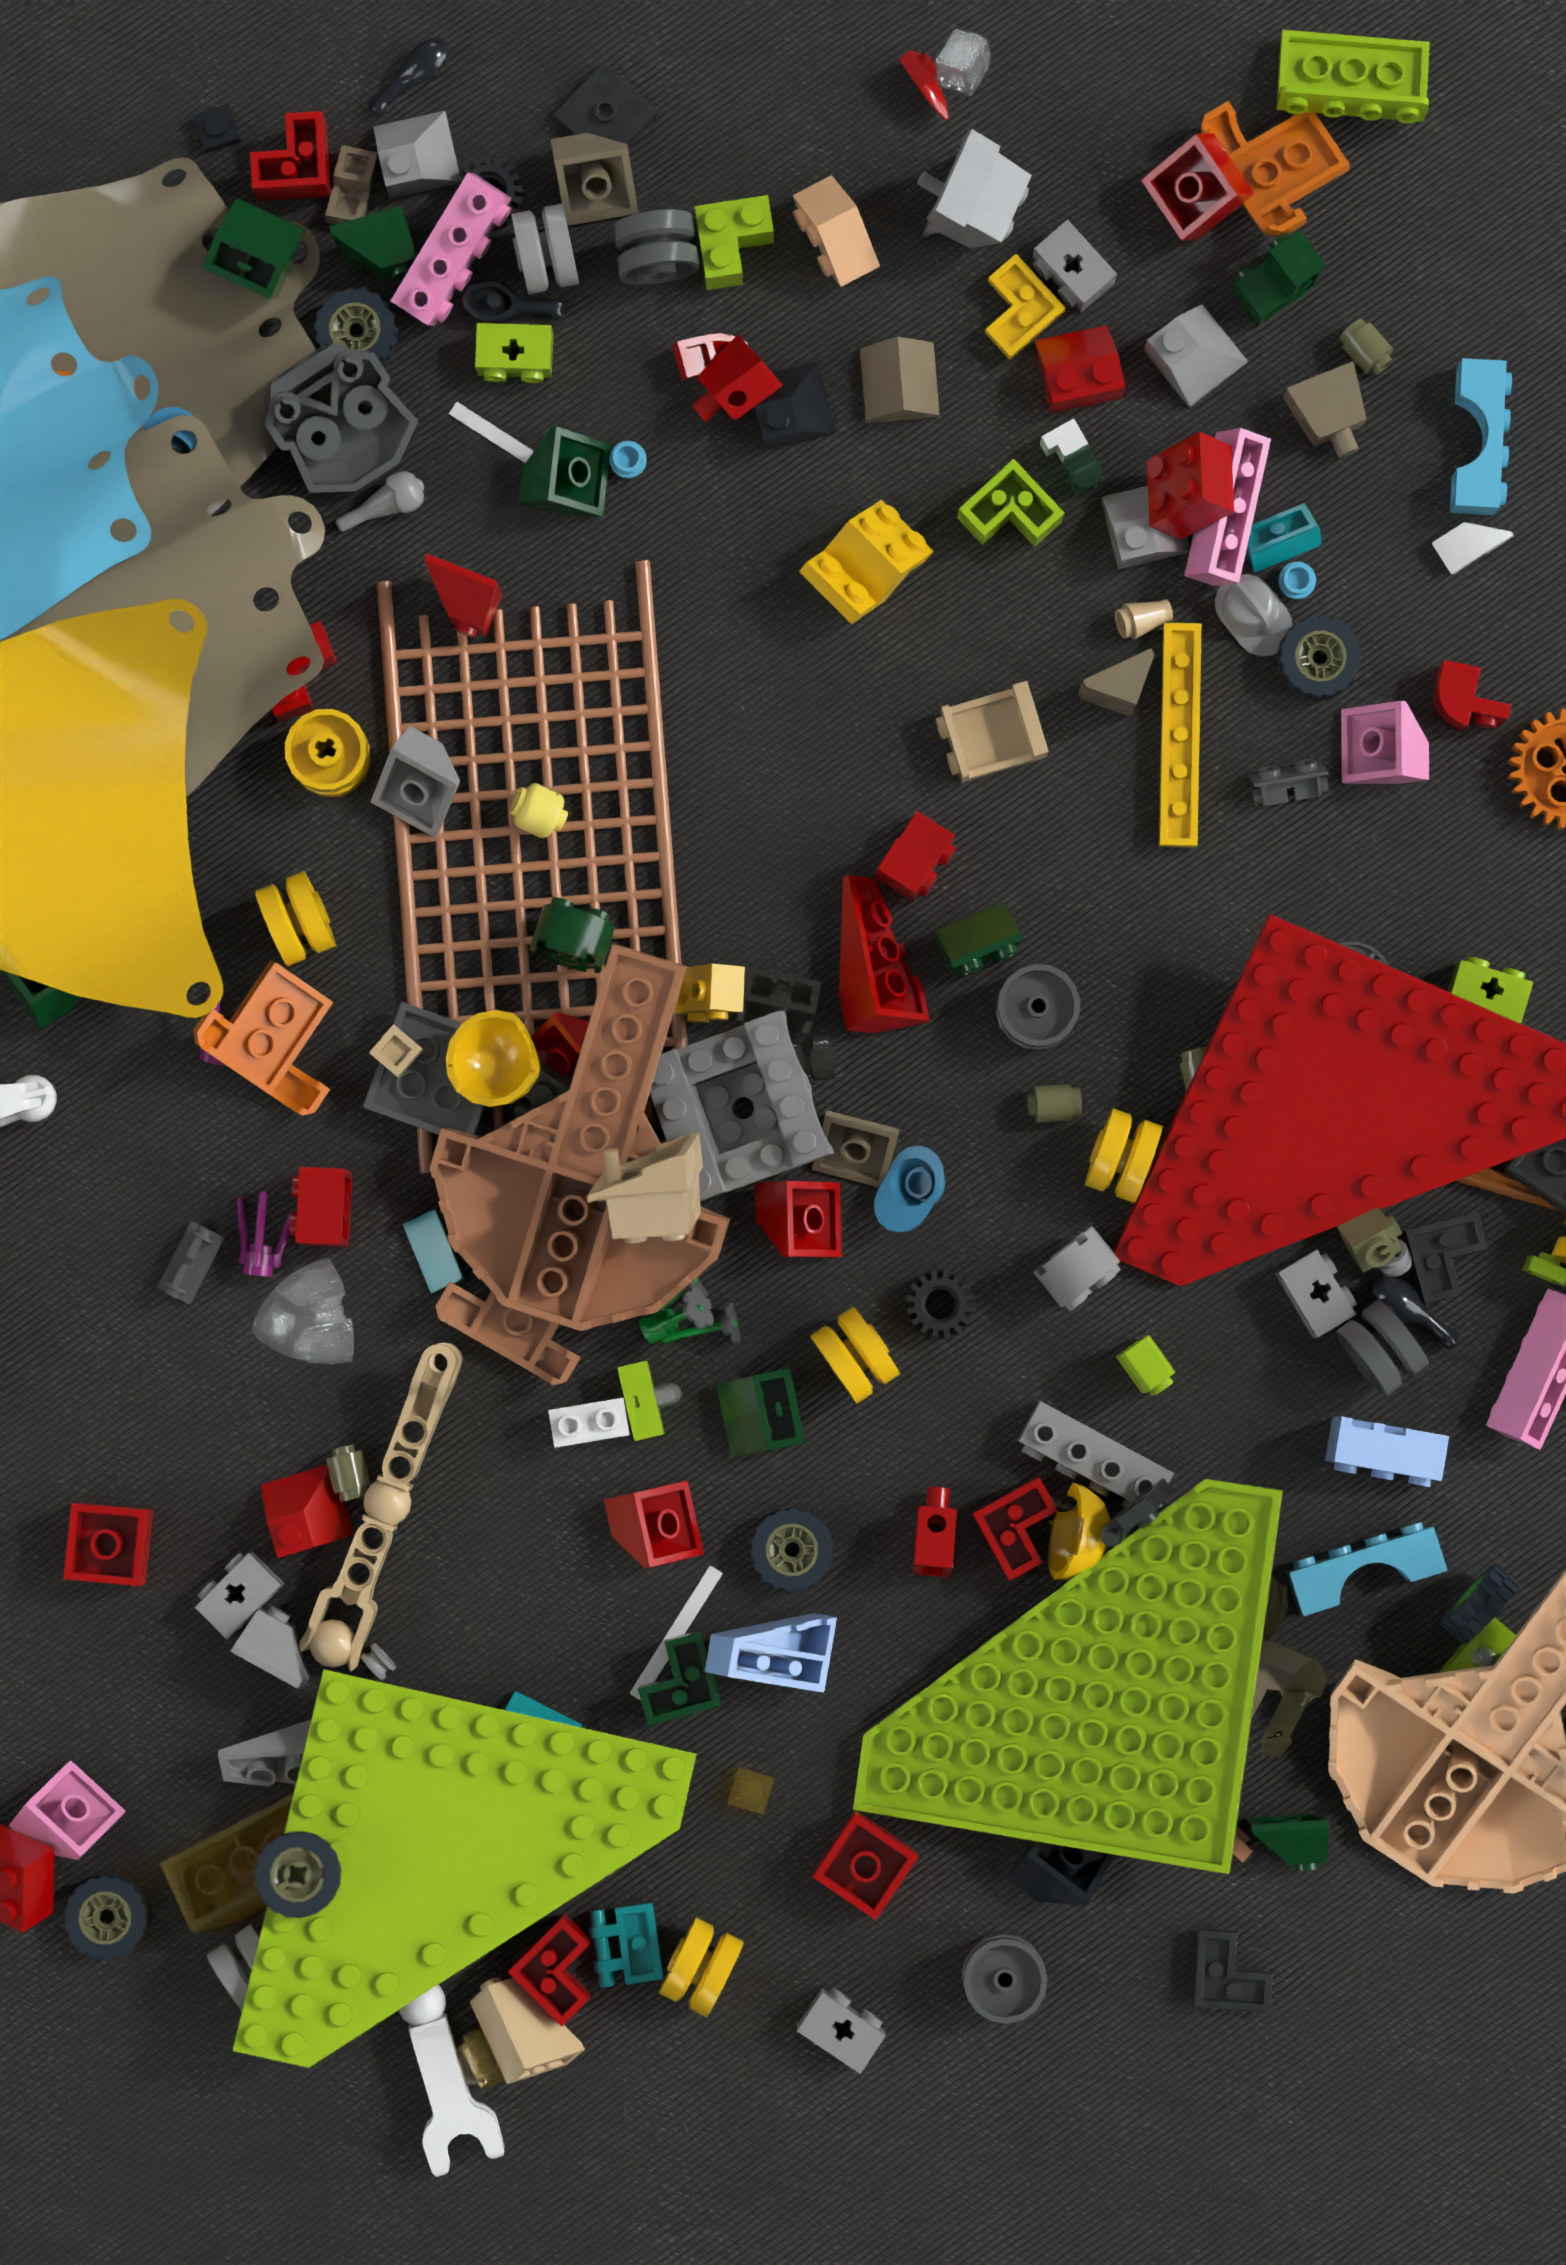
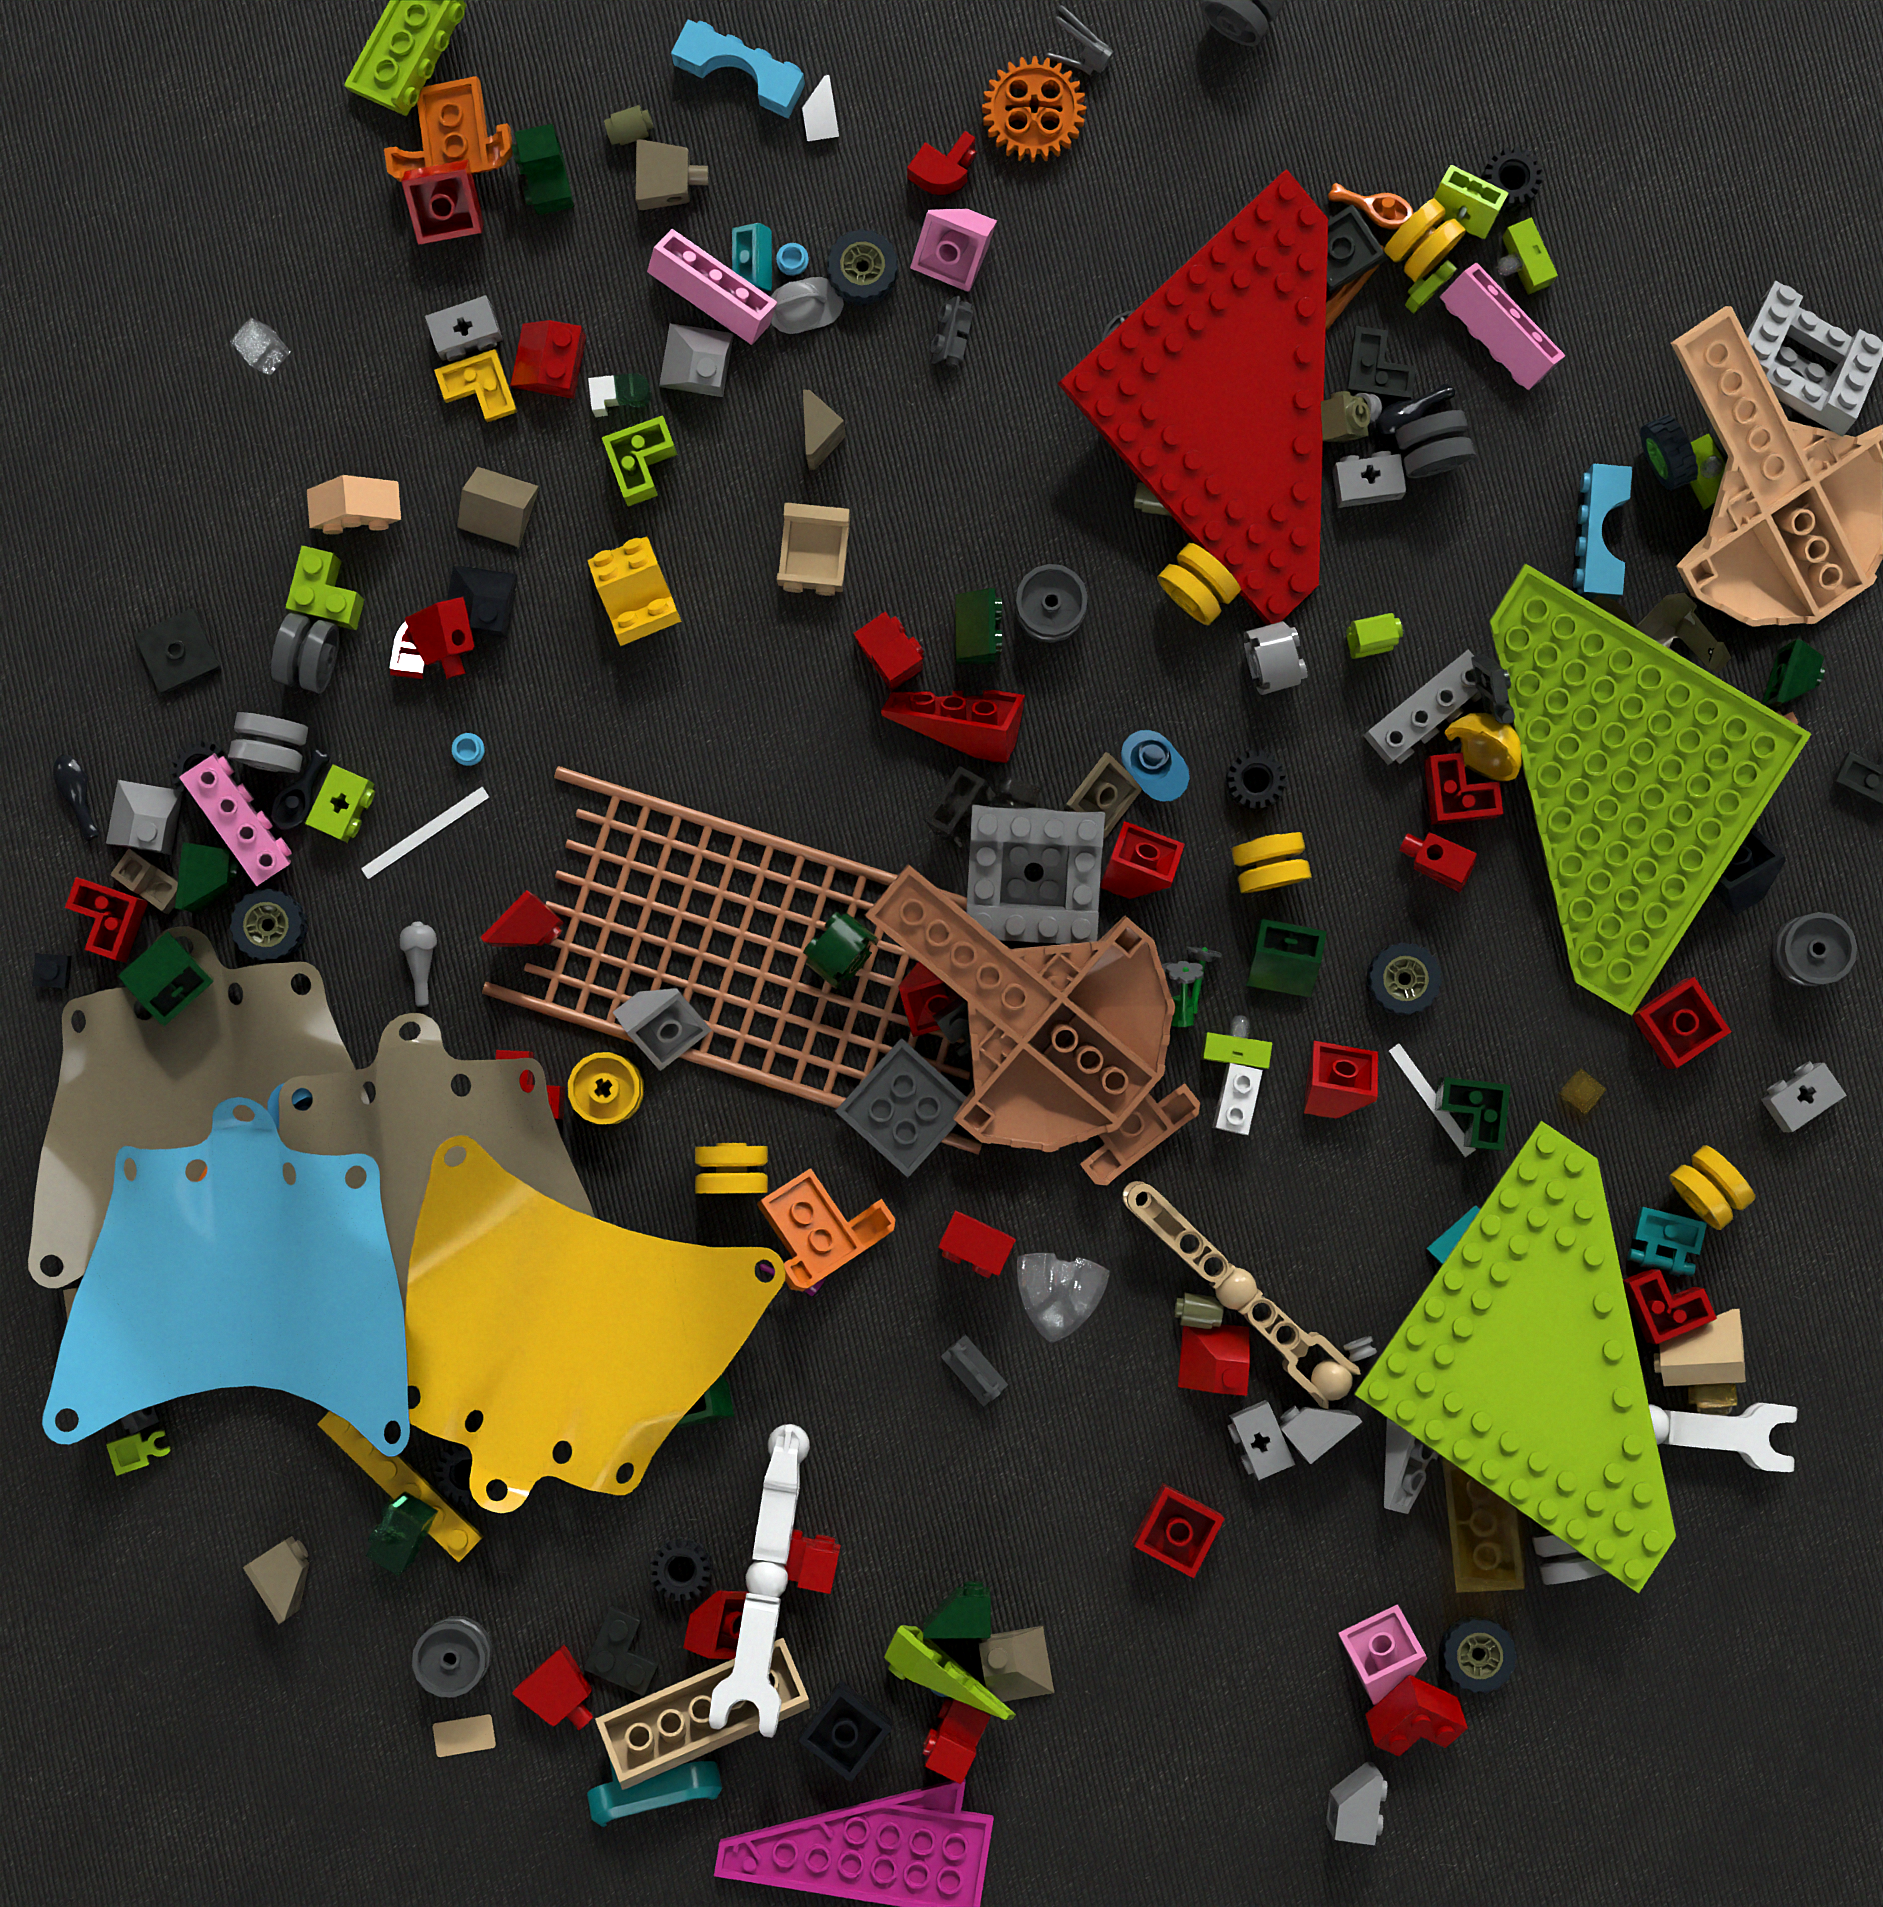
camera: 70 degrees left, 0 degrees up
(258, 1257) = (995, 1313): magenta plant -> none
(275, 1868) = (1501, 1469): black wheel -> none
(355, 443) = (362, 962): dark grey brick -> none
(396, 1051) = (874, 1131): tan plate -> none
(433, 1251) = (1046, 1169): teal slope -> none
(492, 1059) = (915, 1054): yellow cylinder -> none
(538, 810) = (725, 936): light yellow head -> none
(566, 474) = (460, 803): dark green slope -> none
(593, 178) = (225, 680): dark tan slope -> none
(652, 1192) = (1081, 965): tan piece -> none
(711, 992) = (934, 854): yellow brick -> none
(777, 1652) = (1484, 1023): light blue wedge -> none
(922, 71) = (254, 382): red plate -> none
(978, 194) = (373, 378): piece -> none
(1054, 1103) = (1132, 622): olive brick -> none
(1139, 618) = (770, 395): tan cone -> none
(1180, 735) = (878, 401): yellow plate -> none
(1190, 485) = (683, 306): red brick -> none
(1194, 354) = (576, 264): light grey slope -> none
(1386, 1450) = (1516, 476): light blue wedge -> none
(1510, 985) = (1188, 227): lime brick -> none

